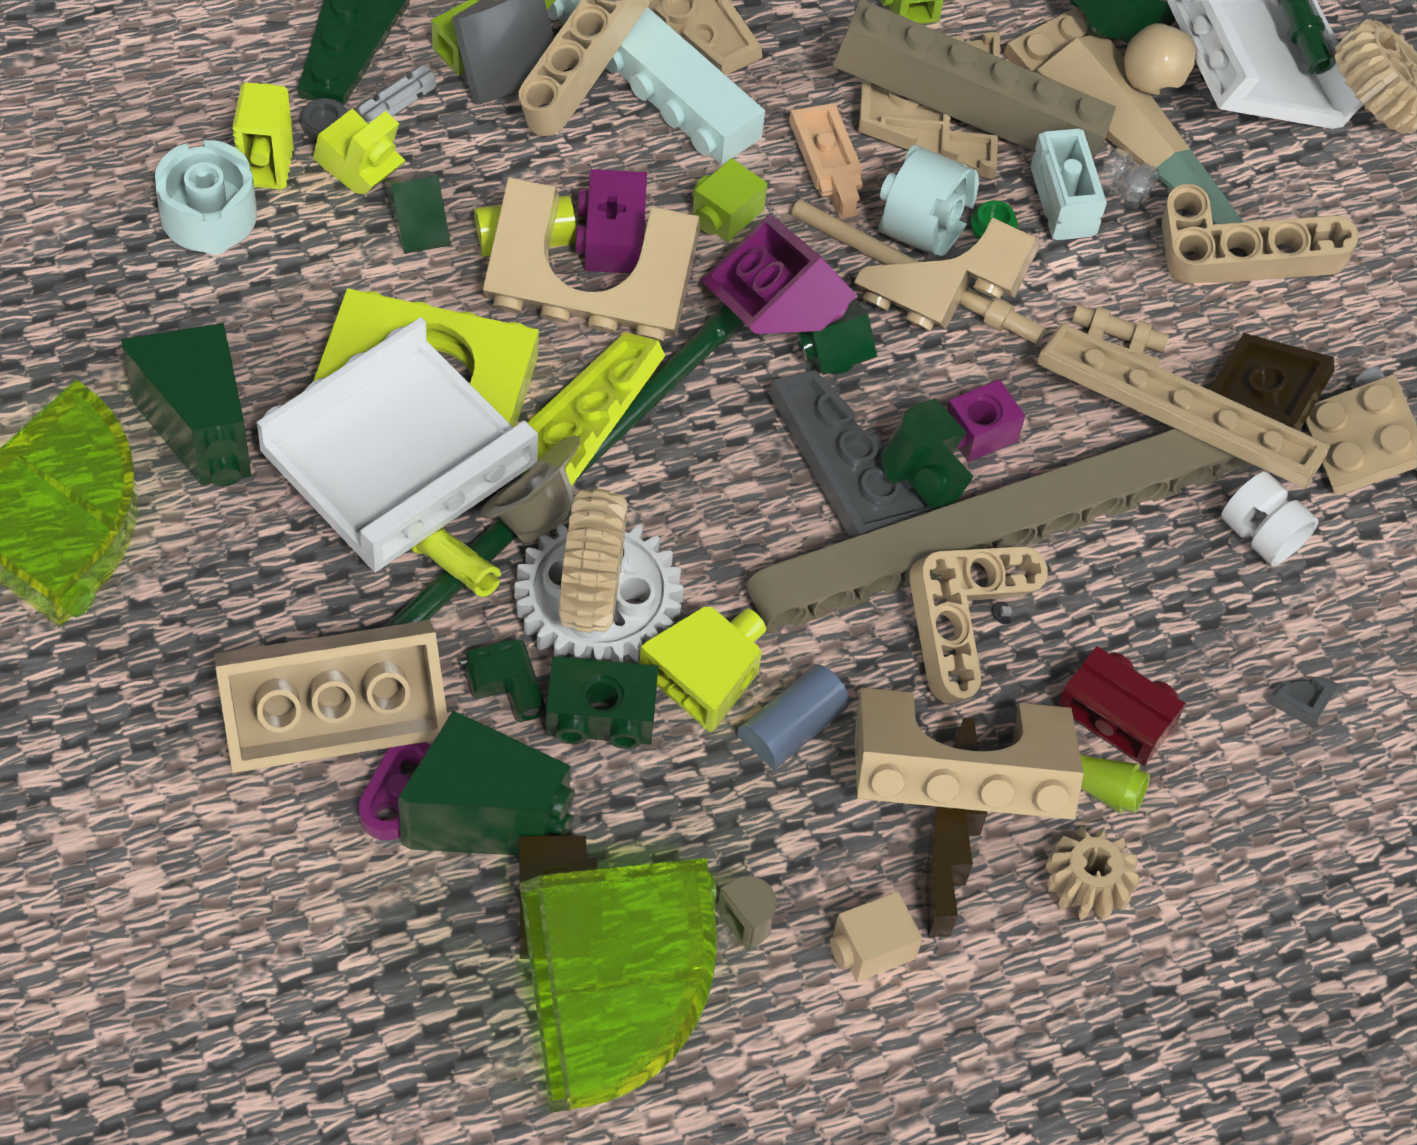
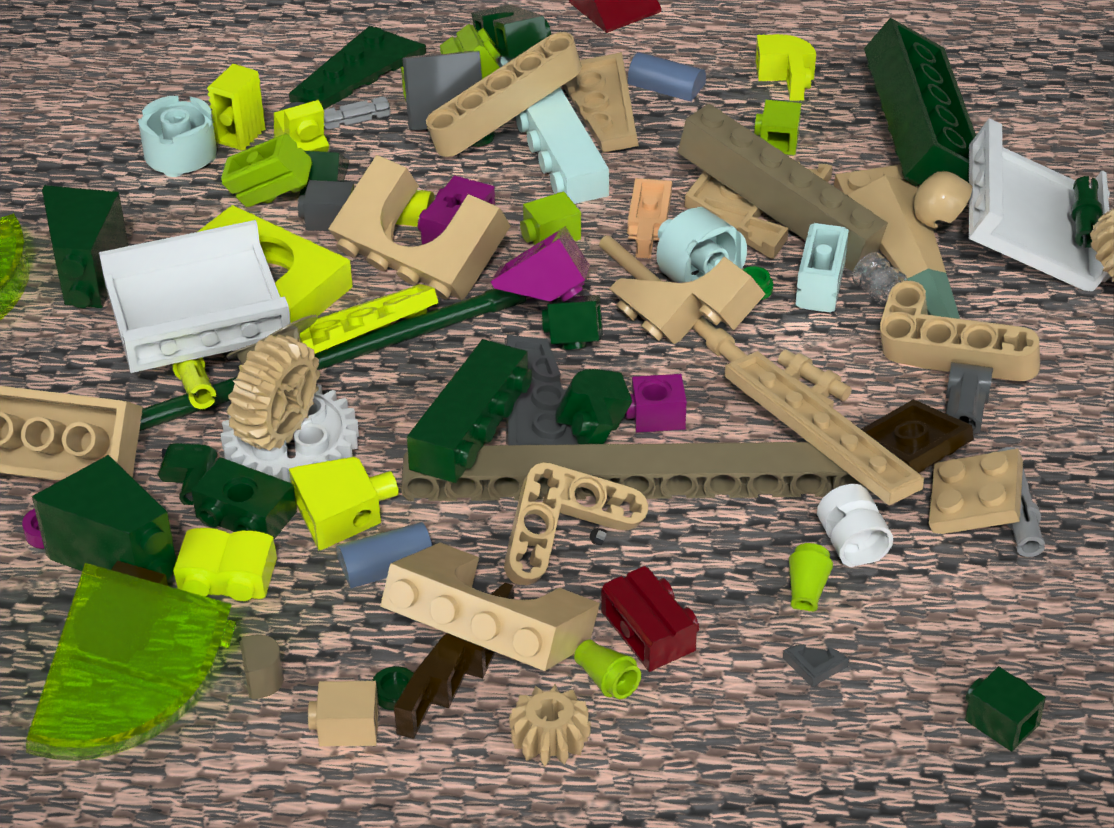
camera: 30 degrees right, 15 degrees down
(361, 225) = (267, 171): none -> lime brick
(452, 251) = (323, 203): none -> dark grey brick
(630, 792) = (226, 563): none -> neon yellow brick
(809, 507) = (468, 411): none -> dark green brick
(901, 875) = (391, 684): none -> dark green tile
(1249, 593) = (809, 572): none -> lime cone
(1292, 305) = (968, 393): none -> dark grey piece

